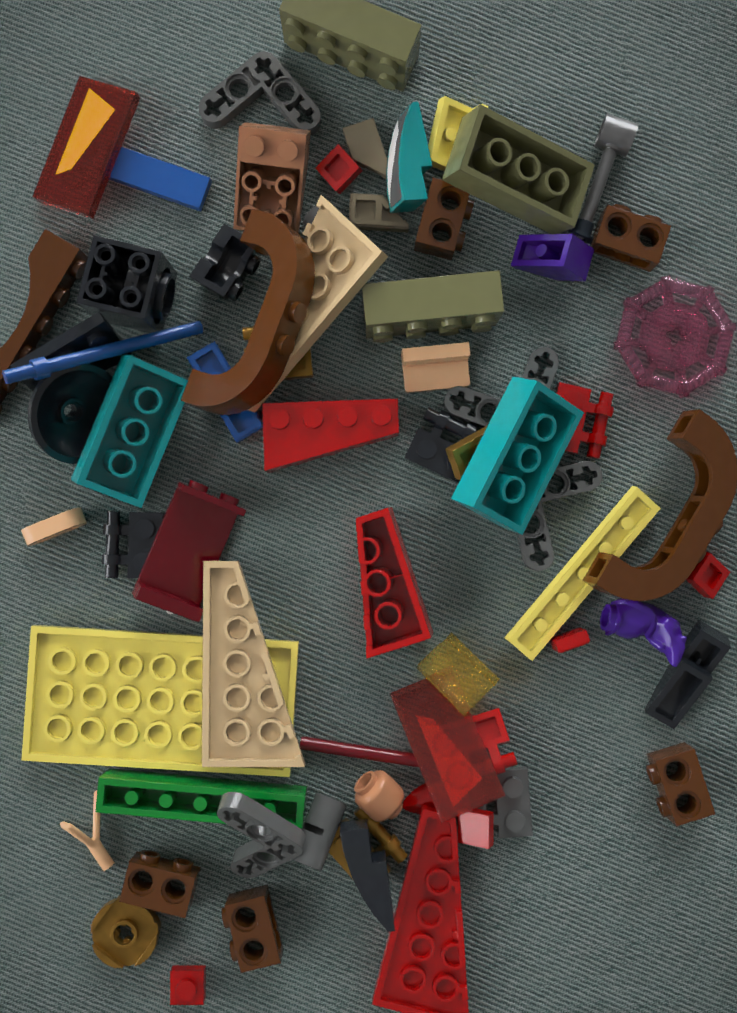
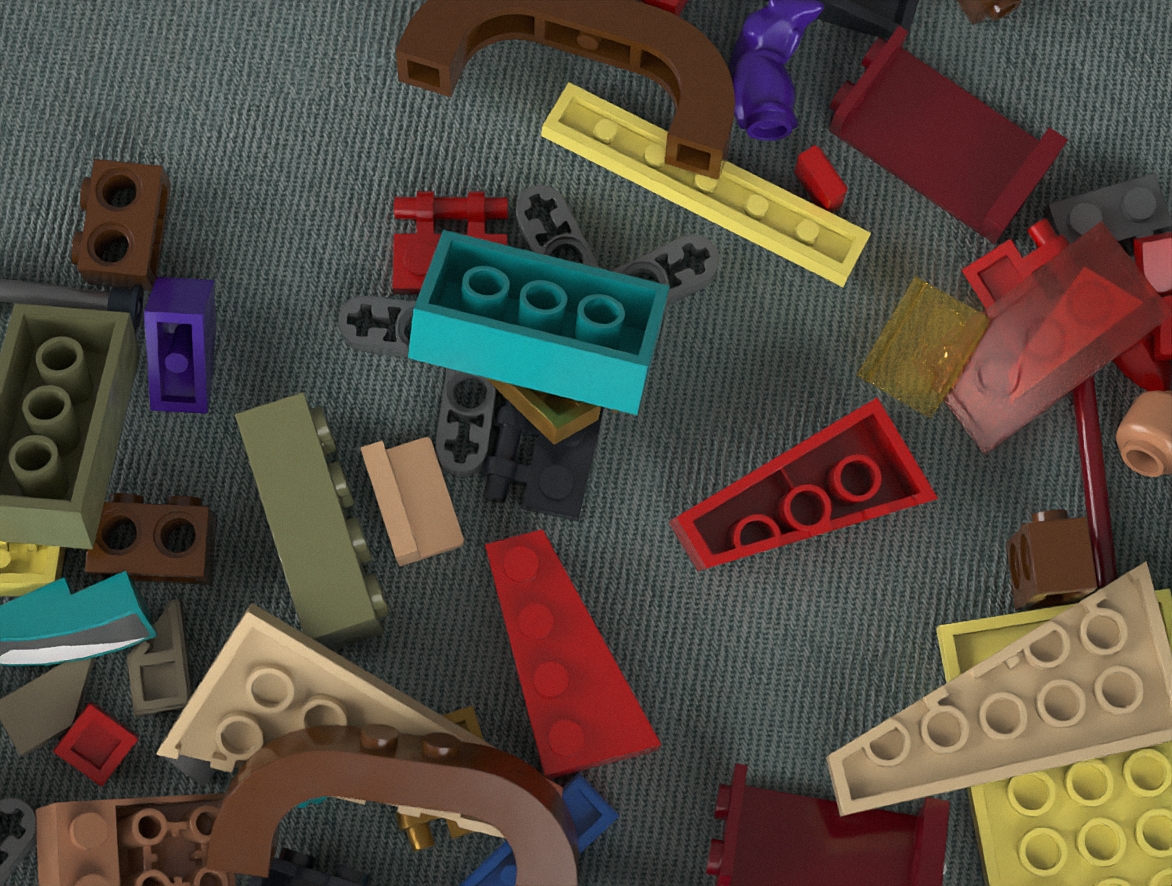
camera: 105 degrees left, 10 degrees down
(317, 713) = (1051, 561): none -> reddish brown brick
(581, 717) = (941, 138): none -> dark red panel
(691, 326) = (251, 97): clear pink plate -> none

